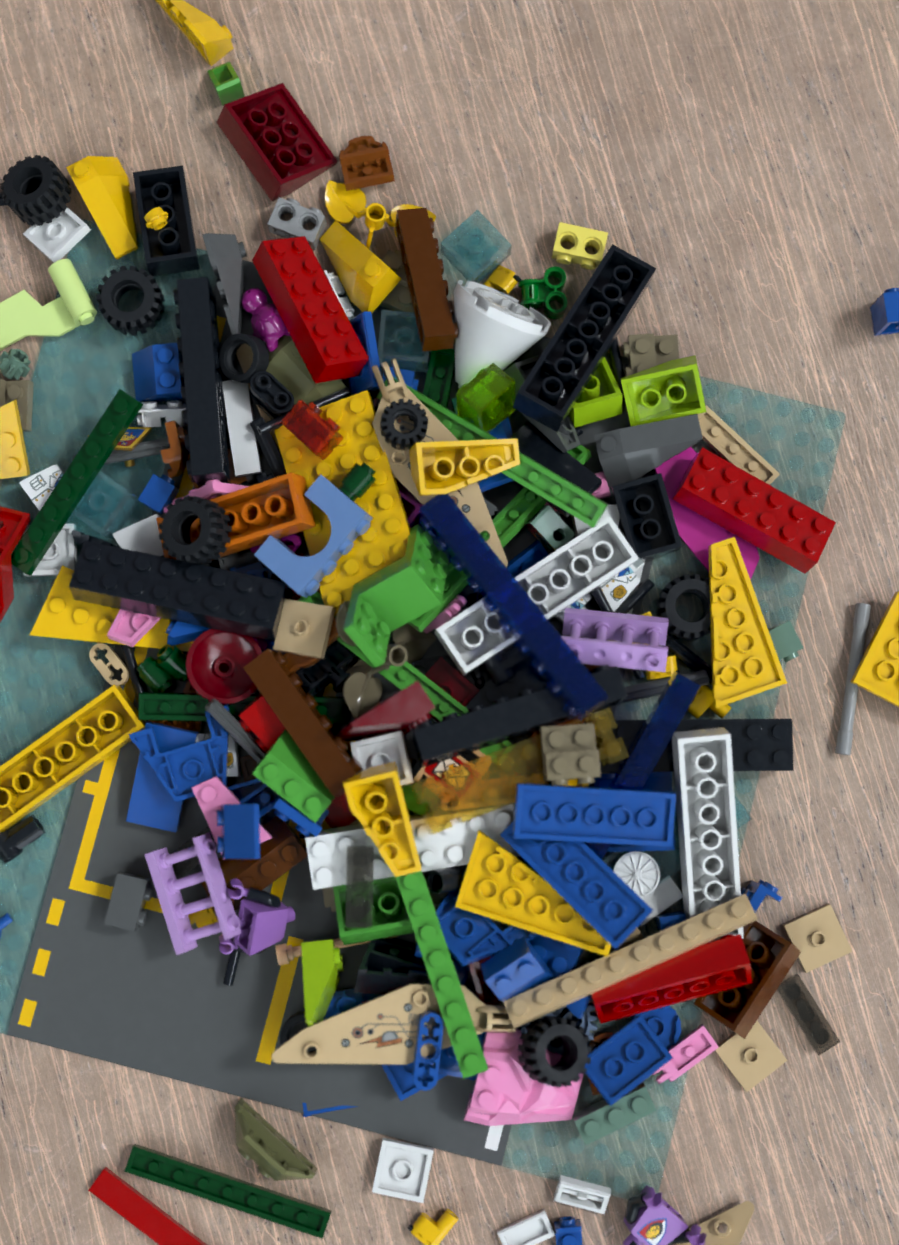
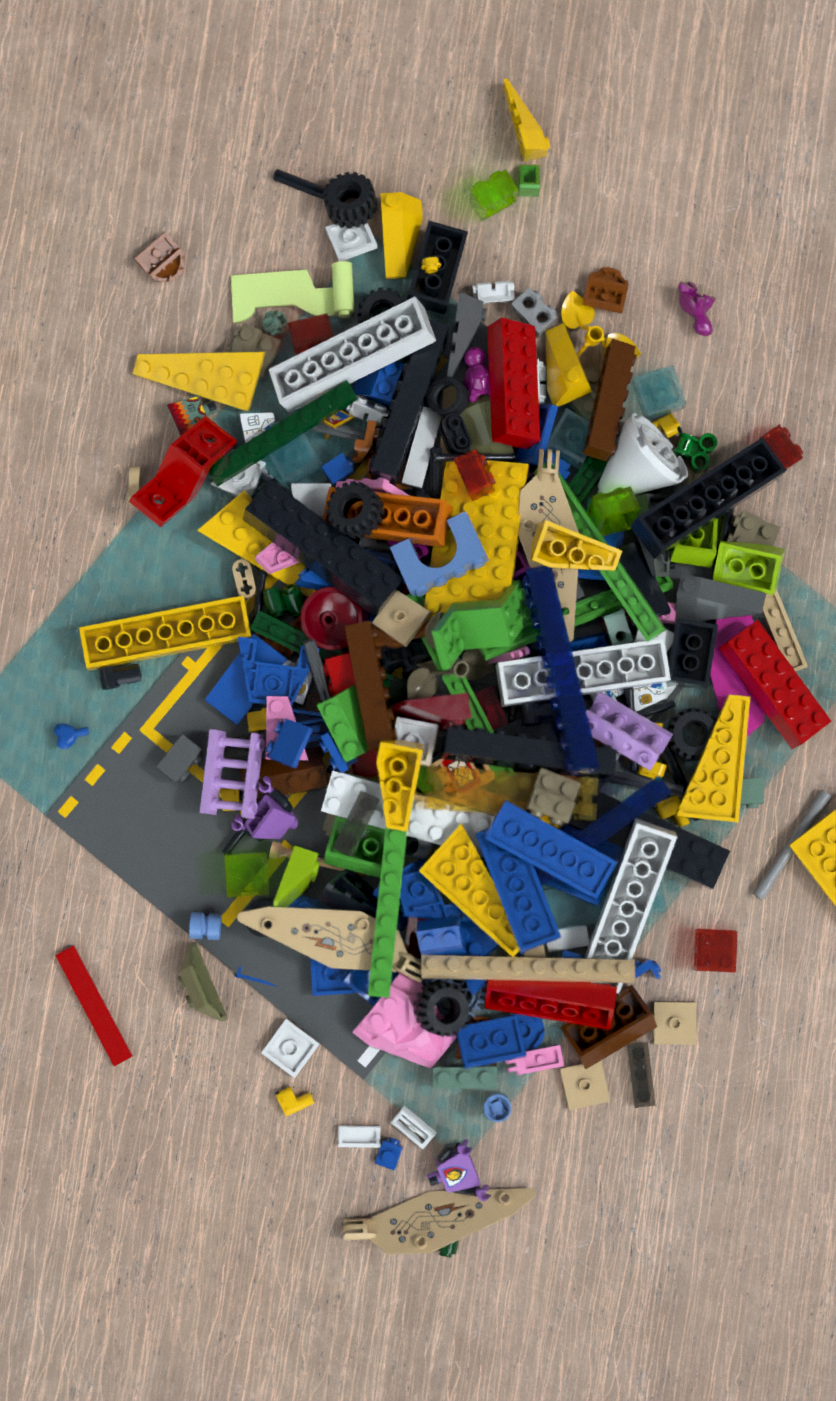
camera: 25 degrees right, 0 degrees up
(59, 358) = (309, 332): none -> clear red brick
(113, 356) = (352, 354): none -> white brick
(192, 113) = (493, 194): none -> clear neon green brick
(194, 818) = (257, 721): none -> yellow panel
(228, 1191) = (156, 1003): dark green plate -> none
(240, 1079) = (205, 926): none -> medium blue wheel
(252, 218) = (502, 292): none -> white hinge
(261, 998) = (246, 874): none -> clear neon green brick
(275, 140) = (546, 242): dark red slope -> none
(357, 481) = (490, 528): dark green brick -> none
(403, 409) = (552, 493): black tyre -> none
(418, 1069) = (338, 975): blue beam -> none
(473, 137) = (696, 307): none -> magenta animal
(580, 238) = (742, 421): light yellow brick -> none
(638, 872) = (564, 910): white wheel -> none
(639, 245) = (783, 447): none -> clear red brick
(666, 1130) = (497, 1107): none -> medium blue wheel
(824, 836) = (715, 950): none -> clear red bracket

